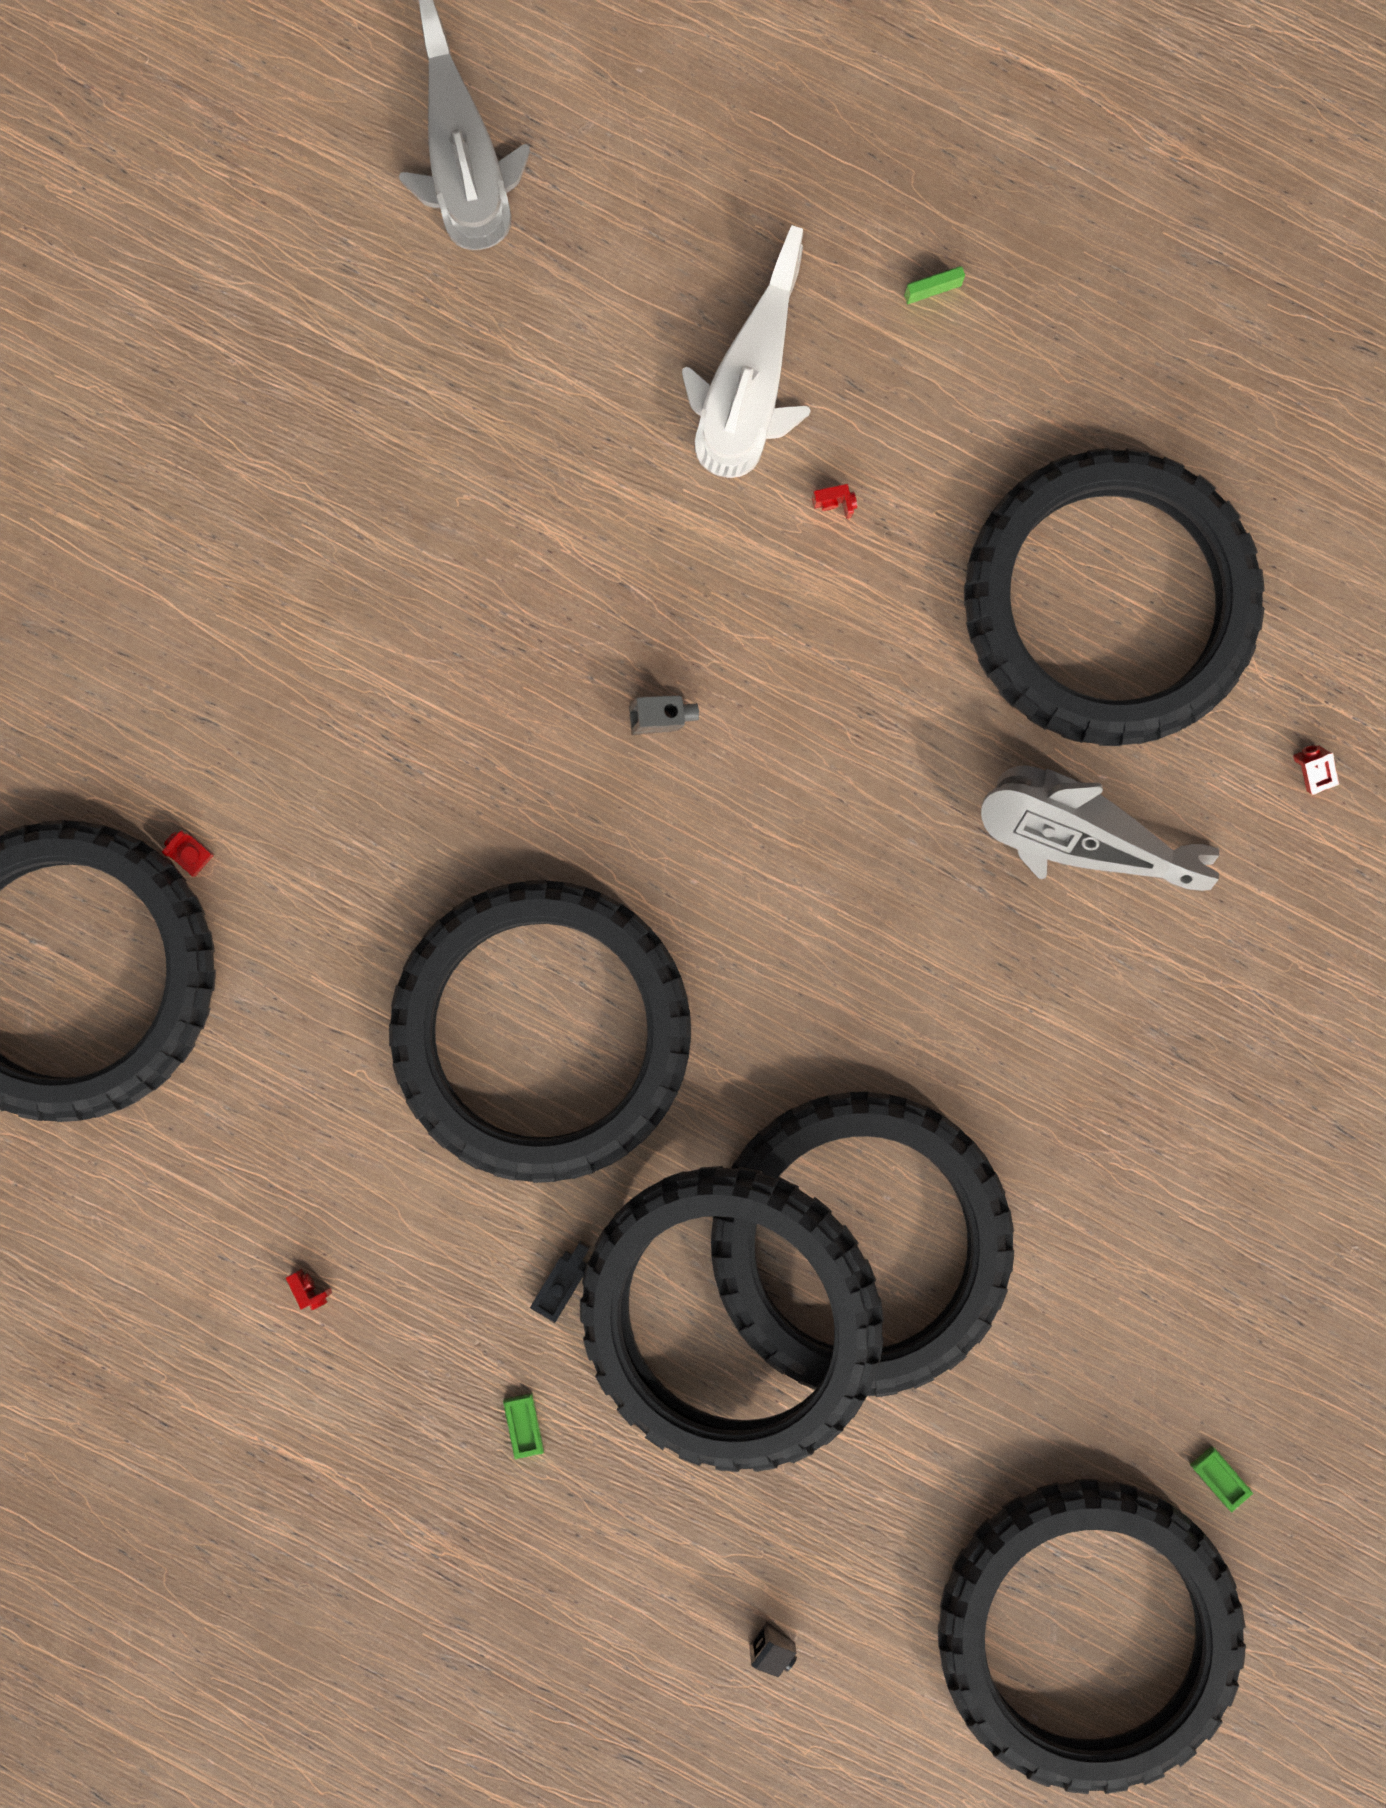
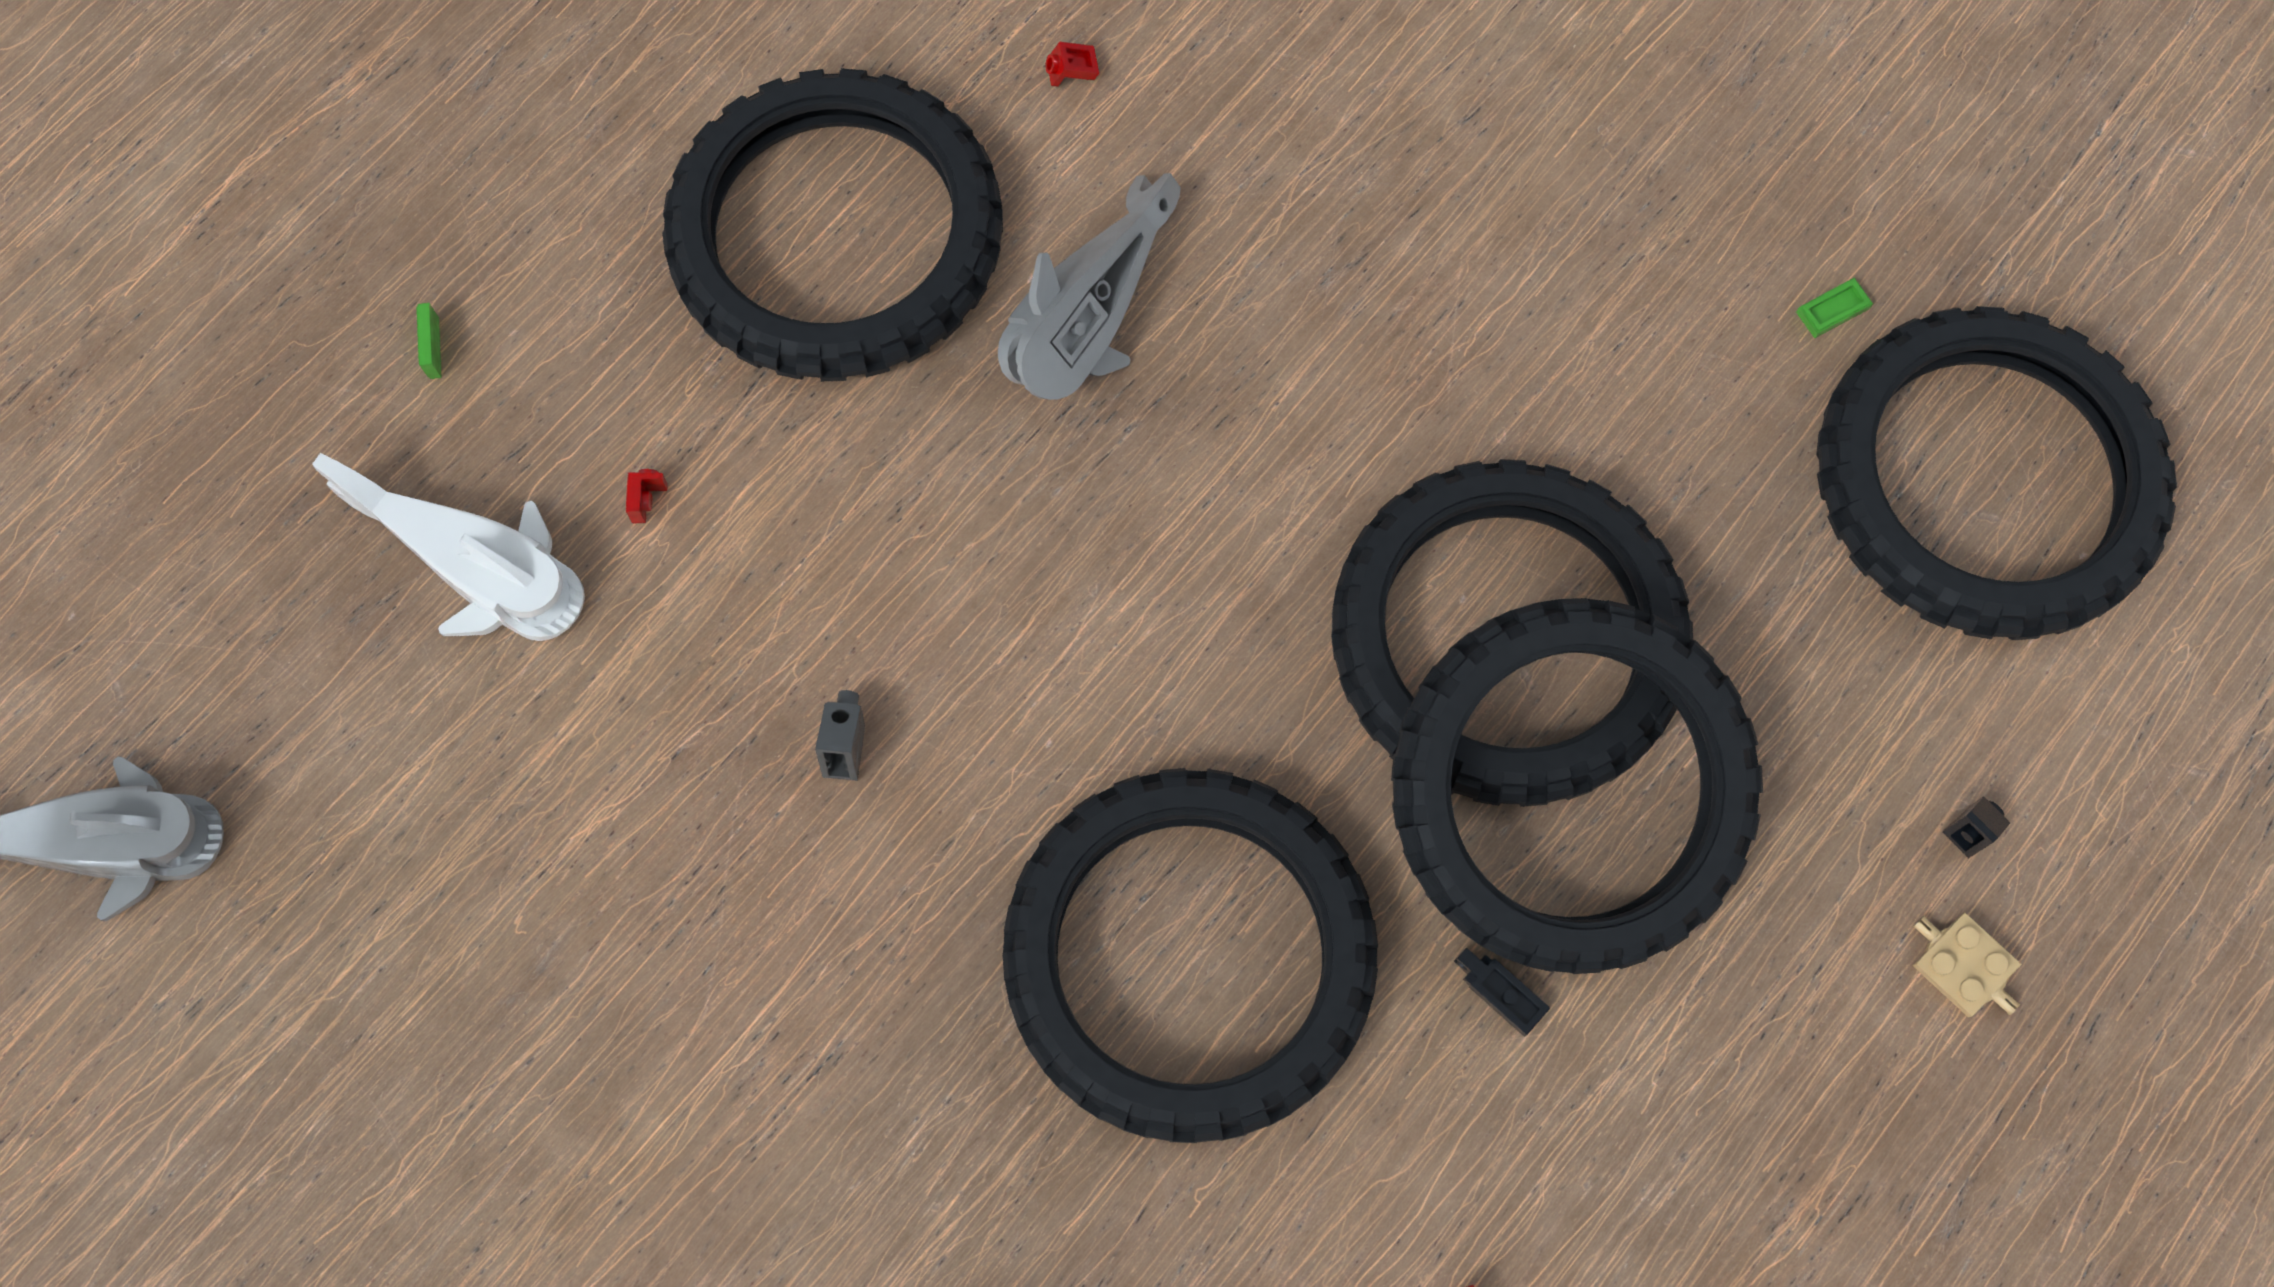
camera: 75 degrees left, 15 degrees down
(523, 1426) = (1670, 1075): bright green tile -> none
(658, 1652) = (1966, 965): none -> tan plate

